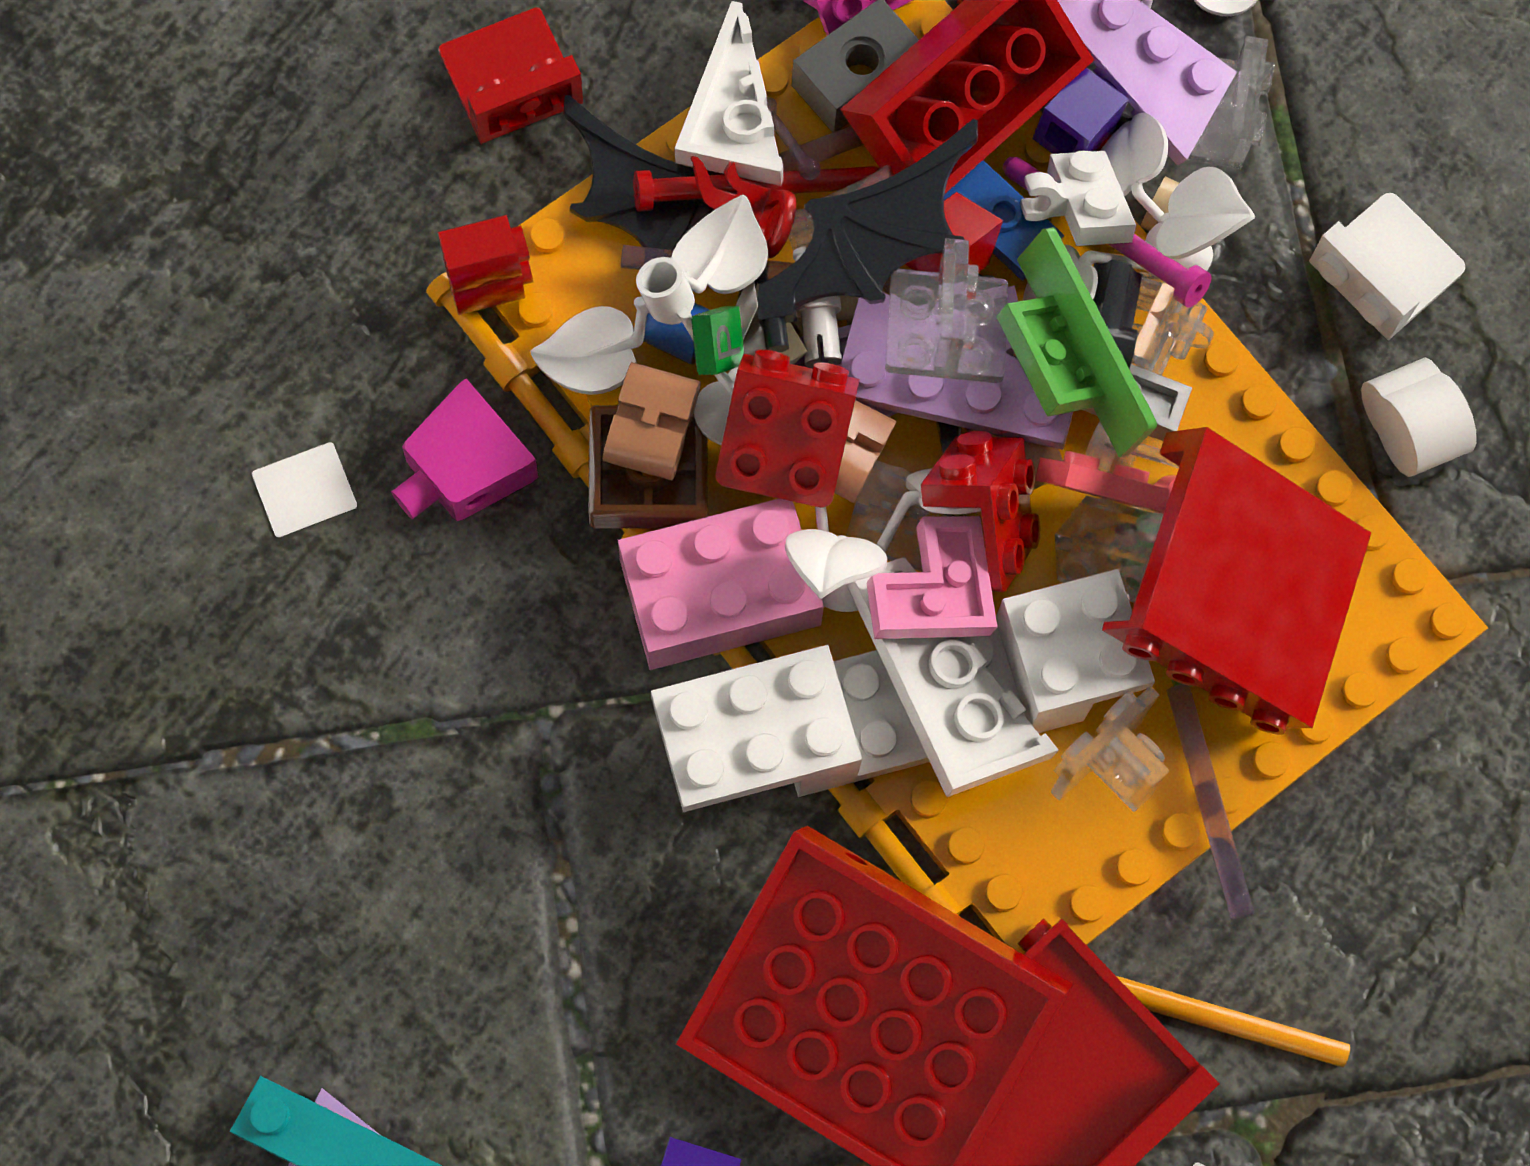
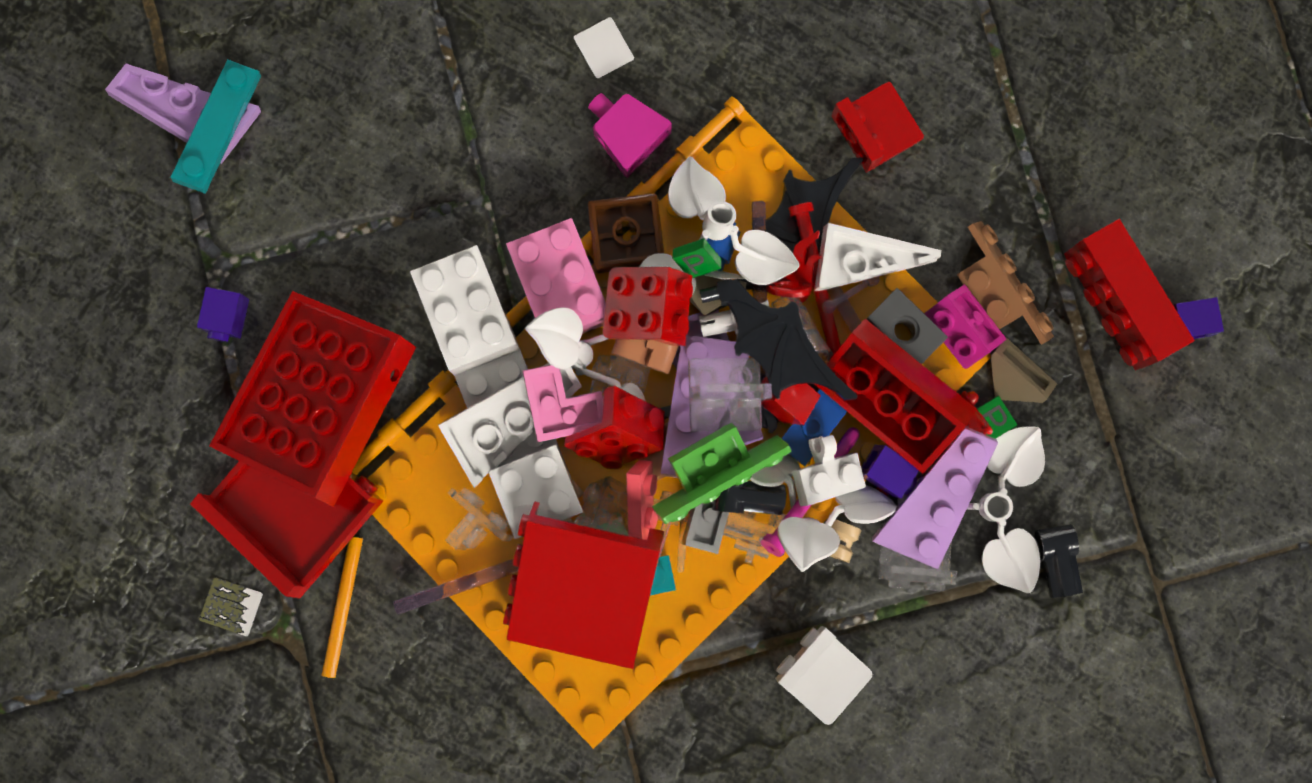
camera: 90 degrees right, 10 degrees up
(485, 263) = (736, 119): red brick -> none
(651, 421) = (644, 227): nougat piece -> none
(1419, 416) = (721, 698): white piece -> none

